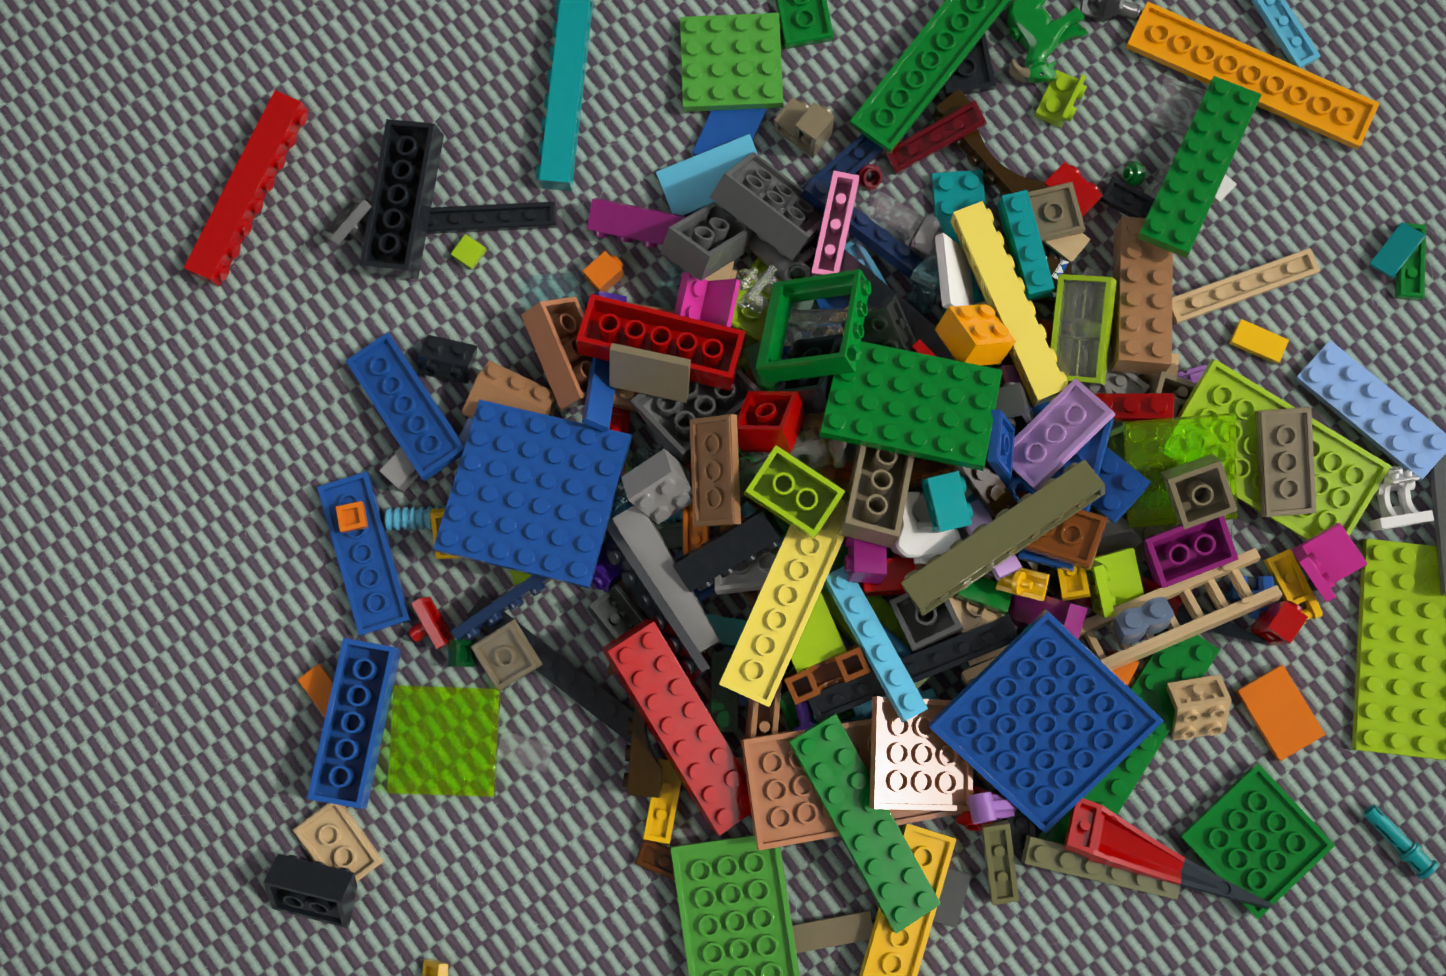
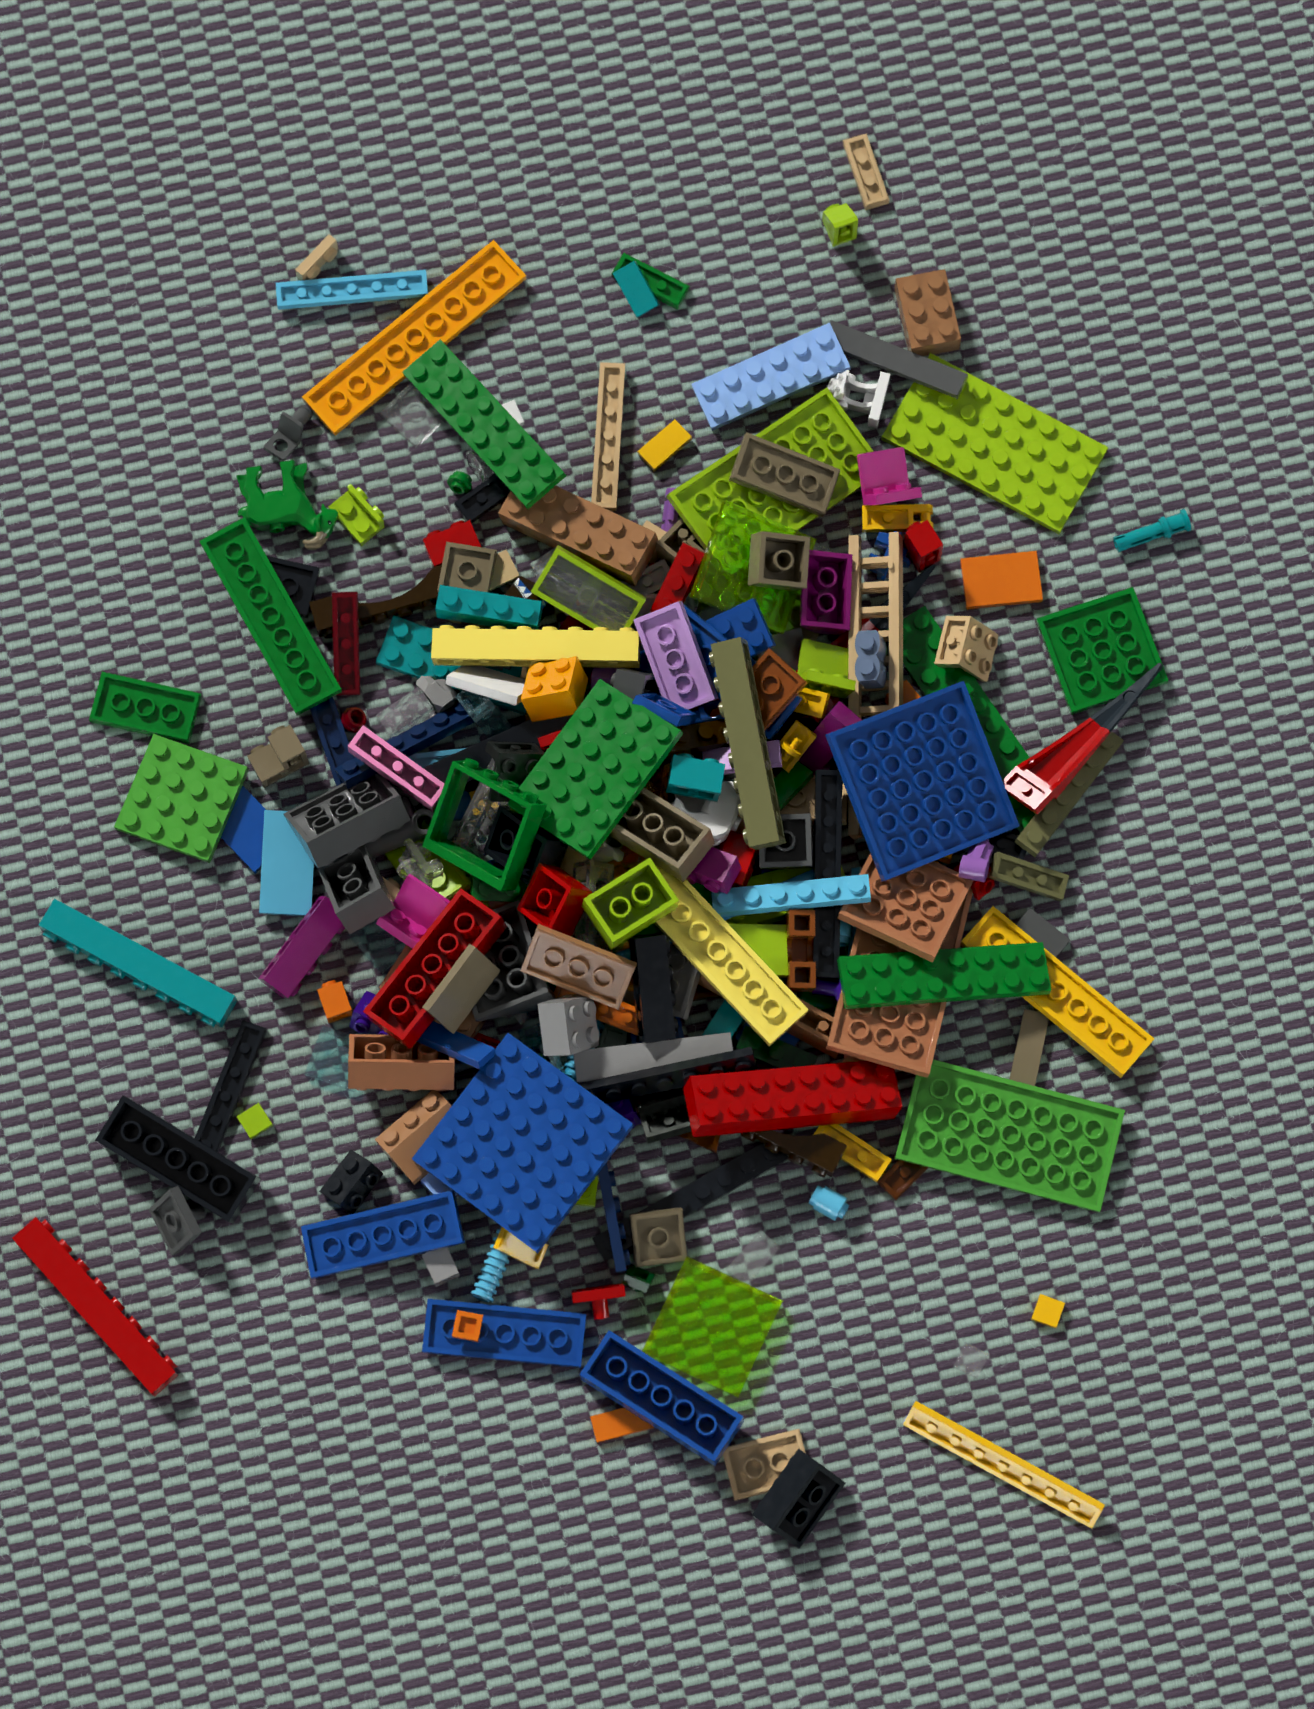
camera: 70 degrees left, 5 degrees down
(604, 801) = (829, 1202): none -> medium azure brick

